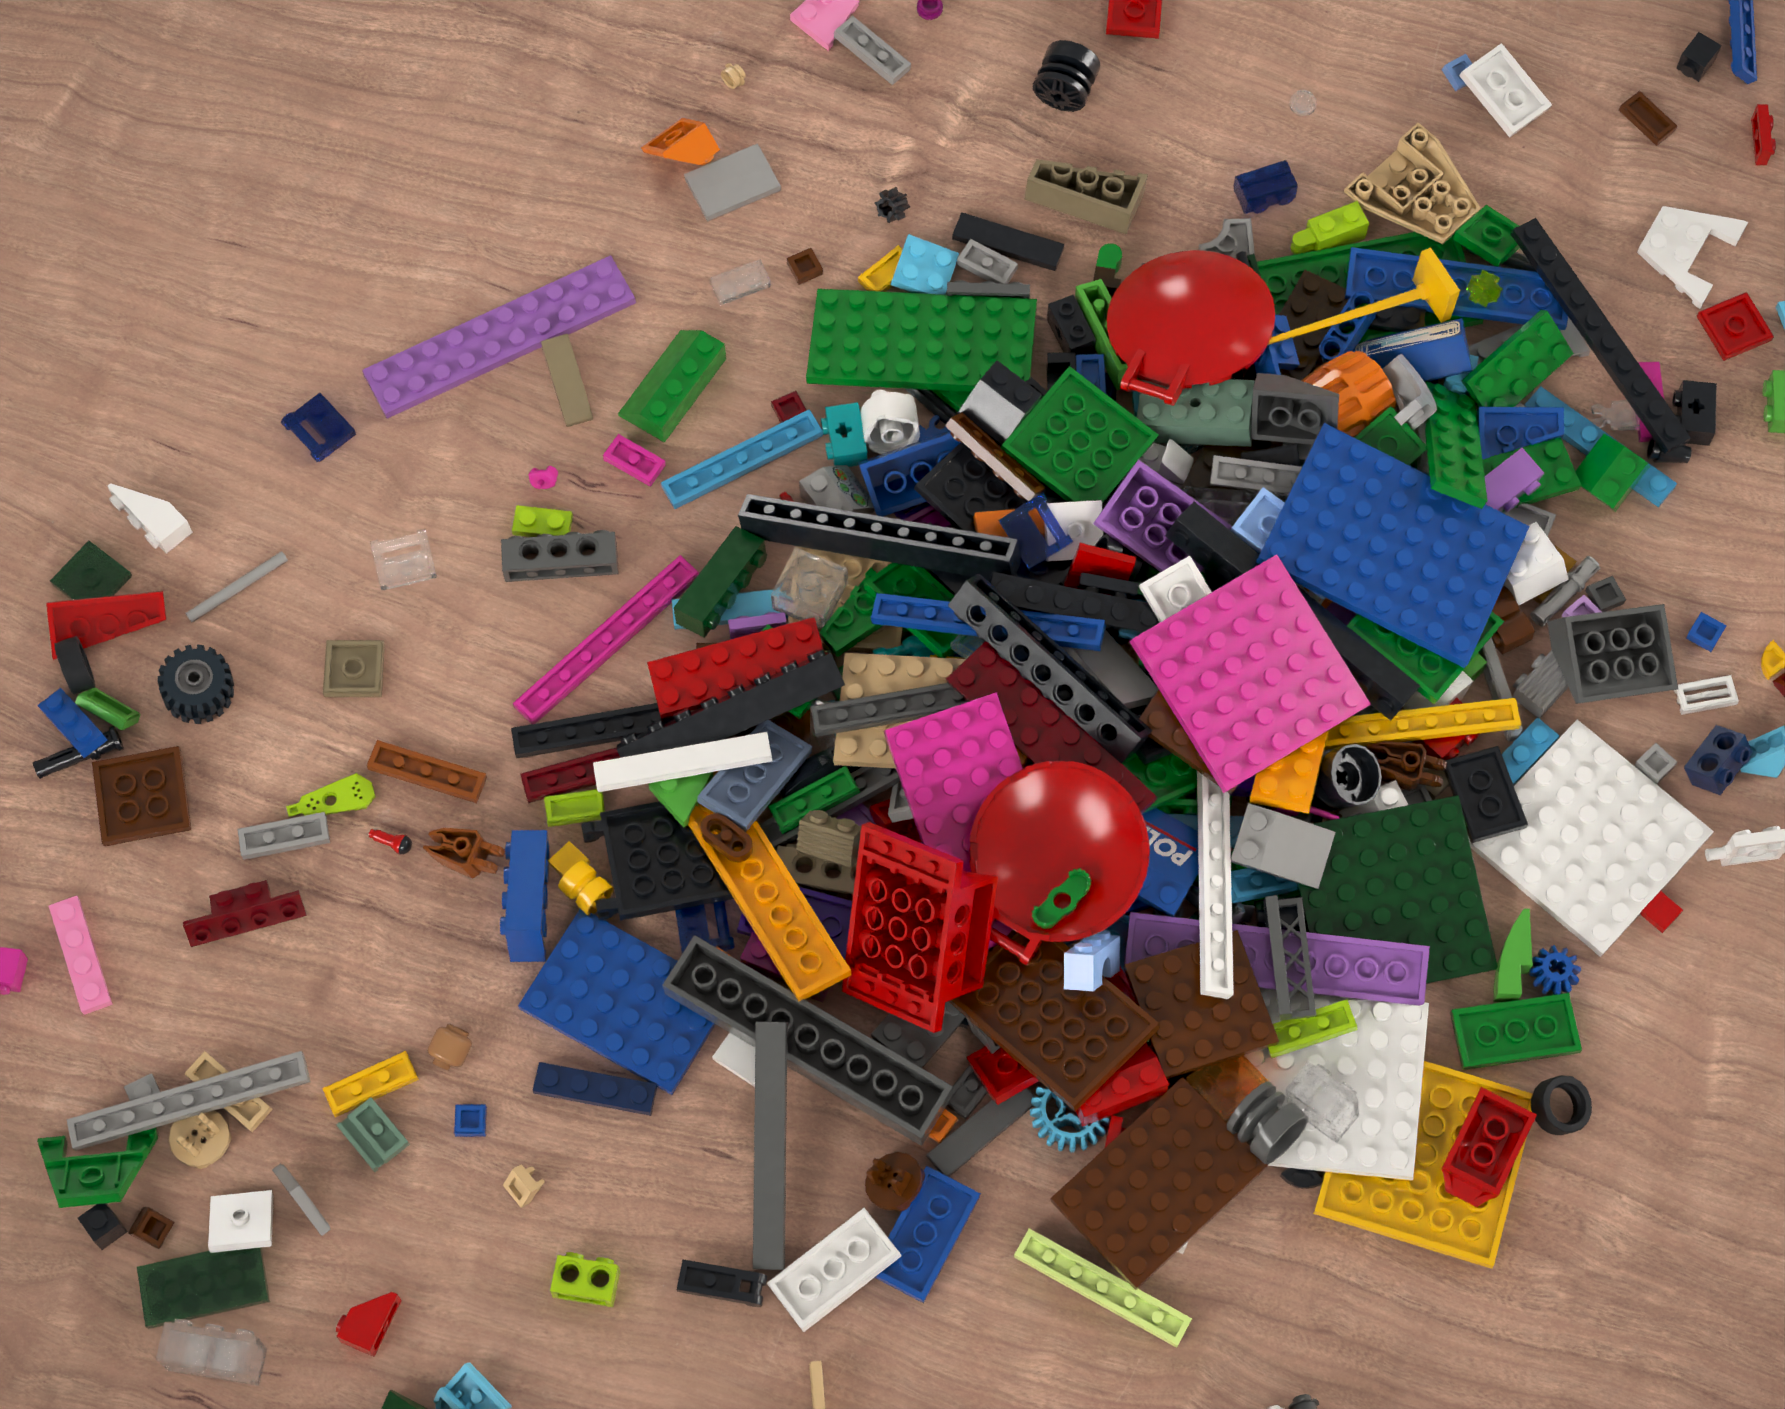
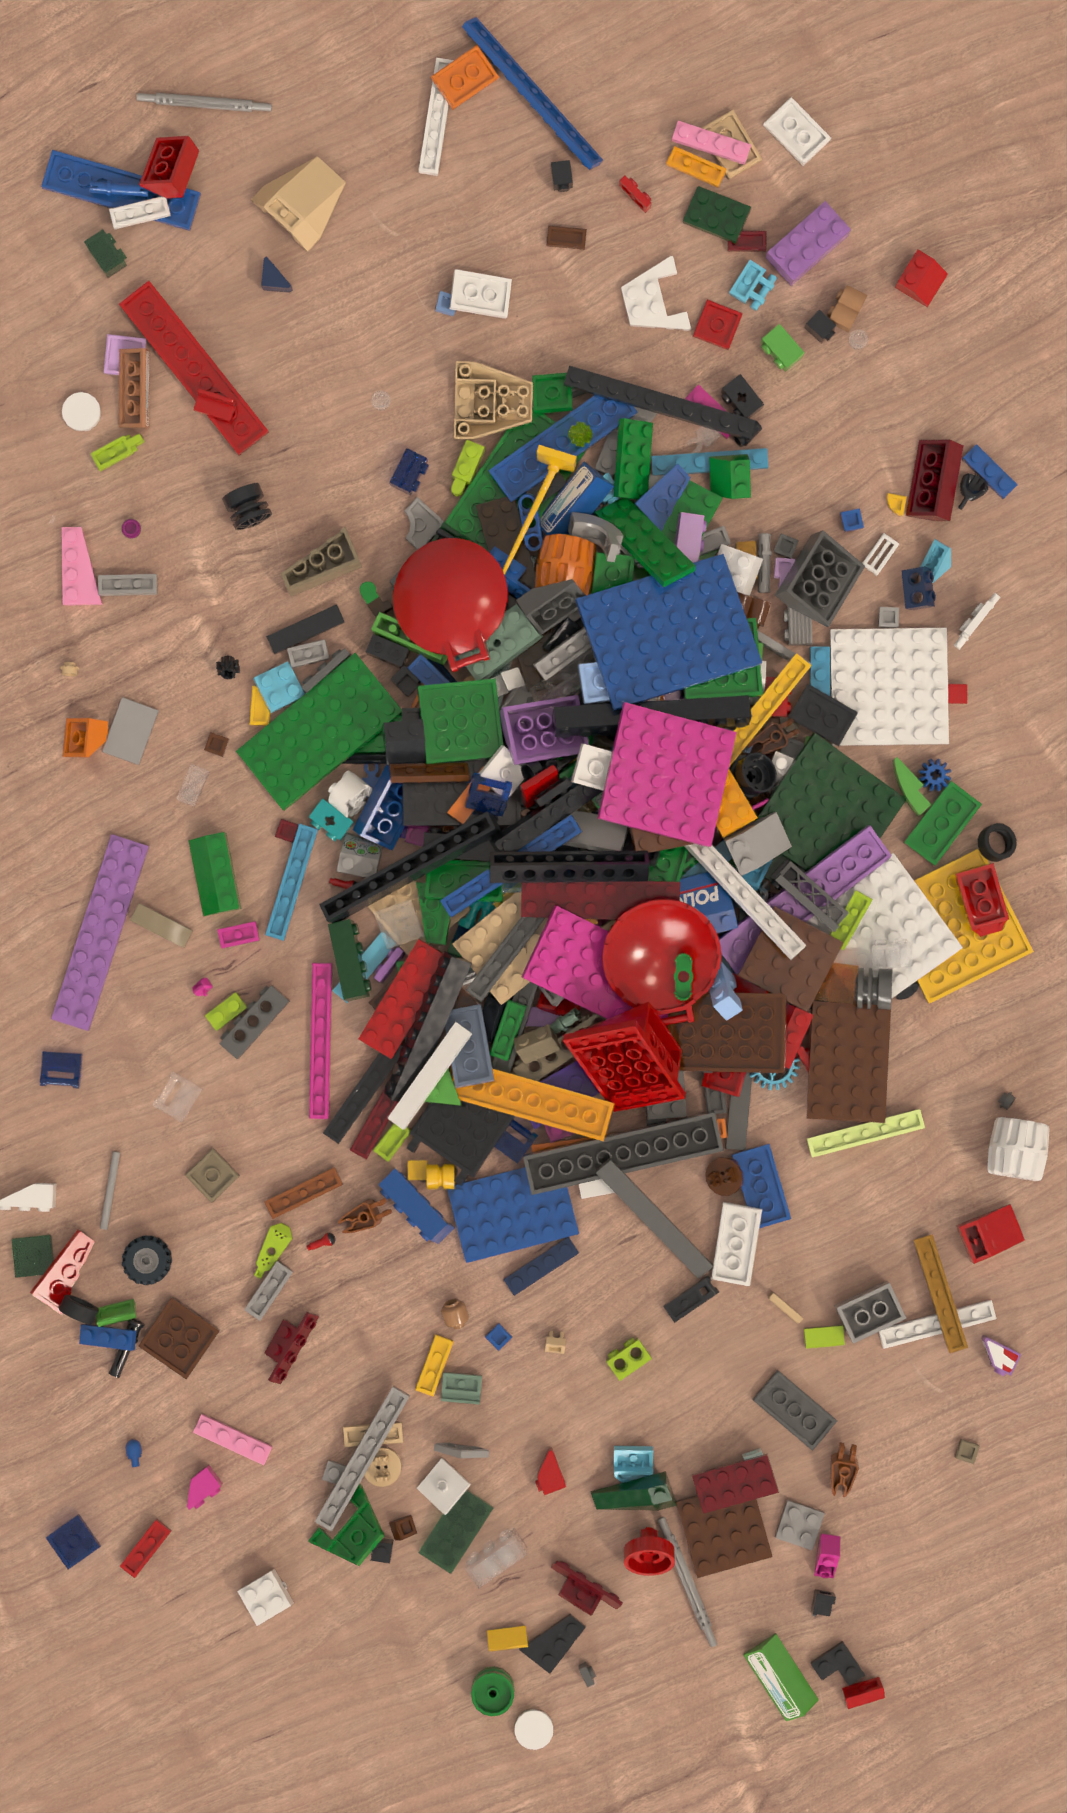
camera: 40 degrees left, 20 degrees up
(729, 837) = (489, 1093): reddish brown plate -> none

